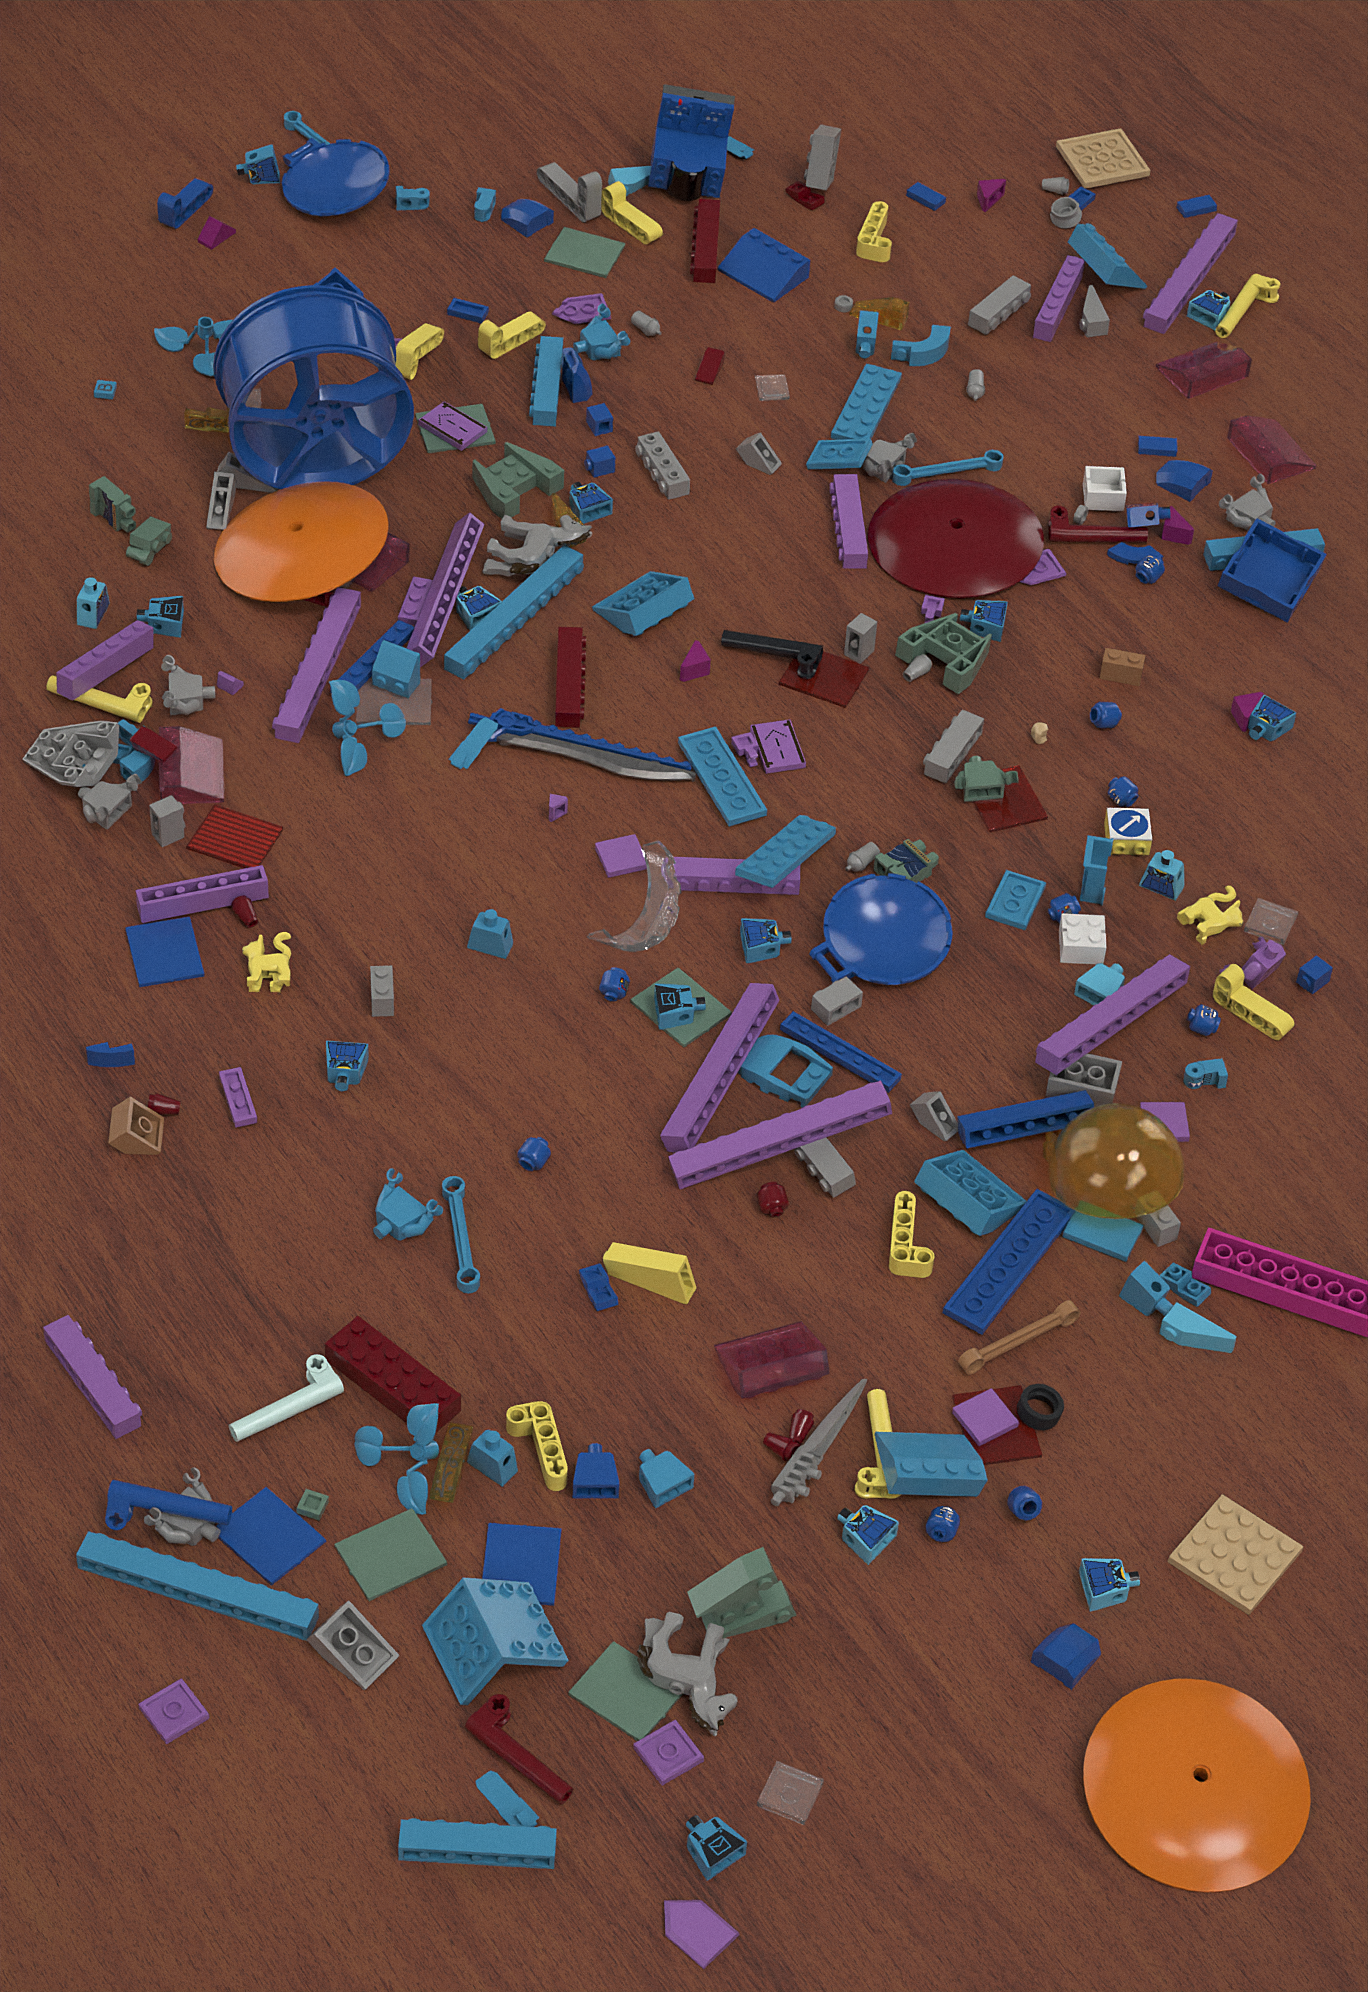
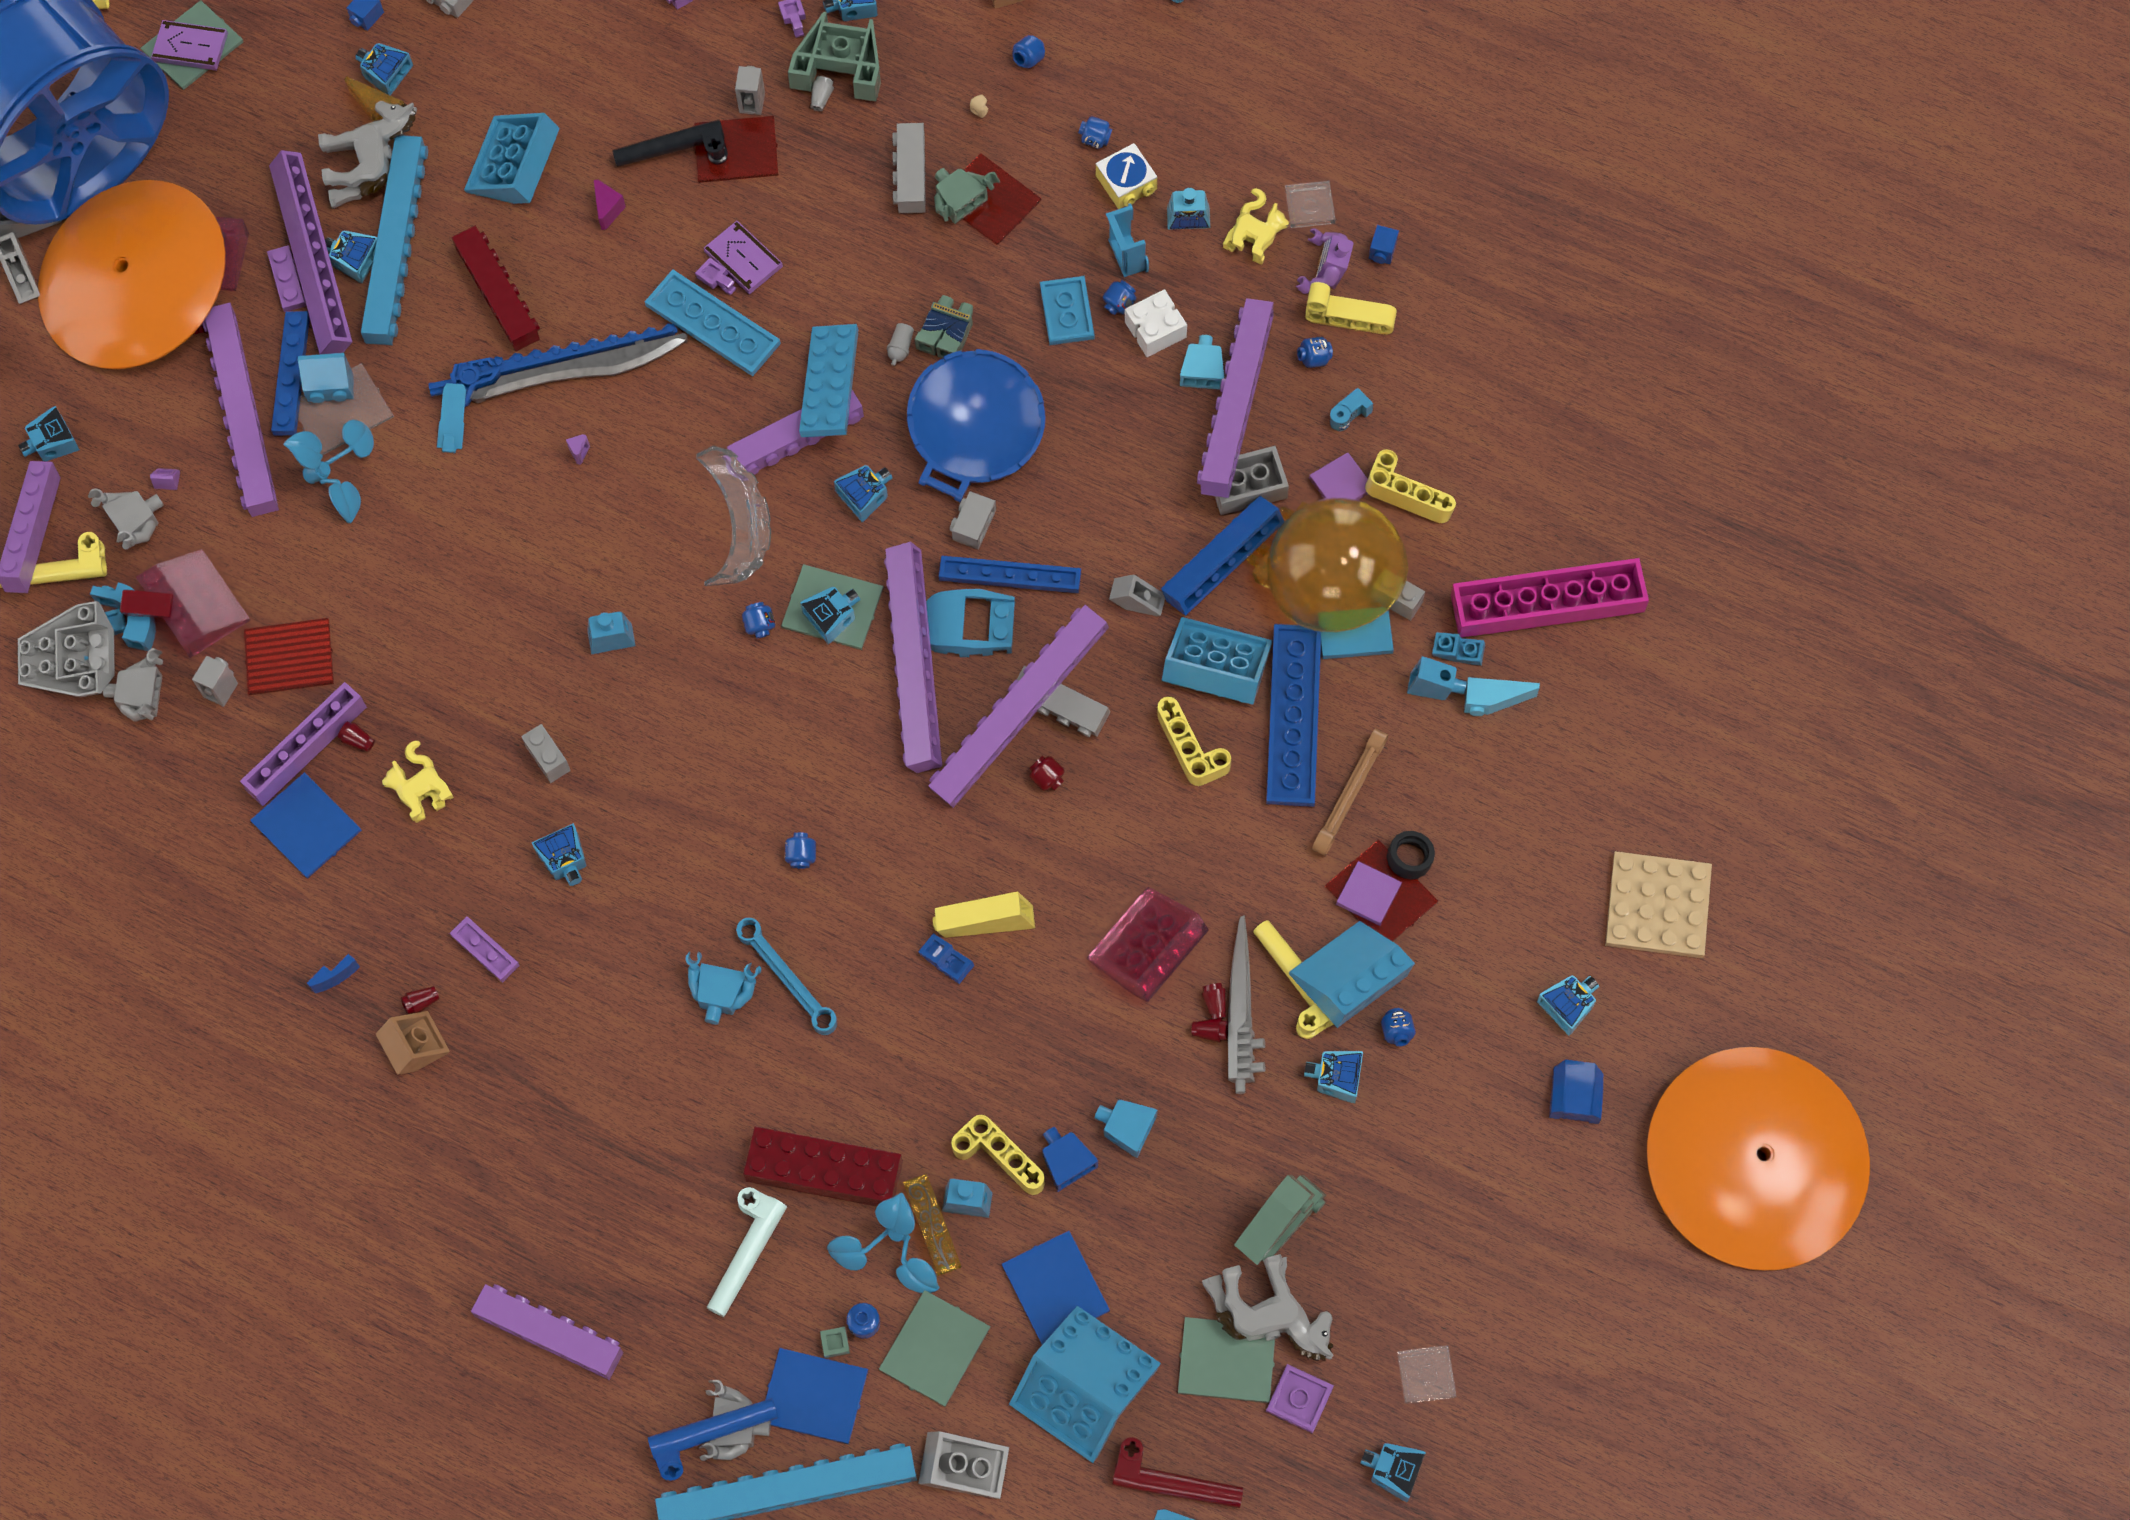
camera: 25 degrees left, 20 degrees up
(346, 1499) = (863, 1320): none -> blue head
(514, 475) = (290, 75): sand green wedge -> none
(621, 855) = (672, 467): medium lavender tile -> none
(1024, 1503) = (1456, 964): blue head -> none
(1213, 1151) = (1436, 504): none -> light yellow beam

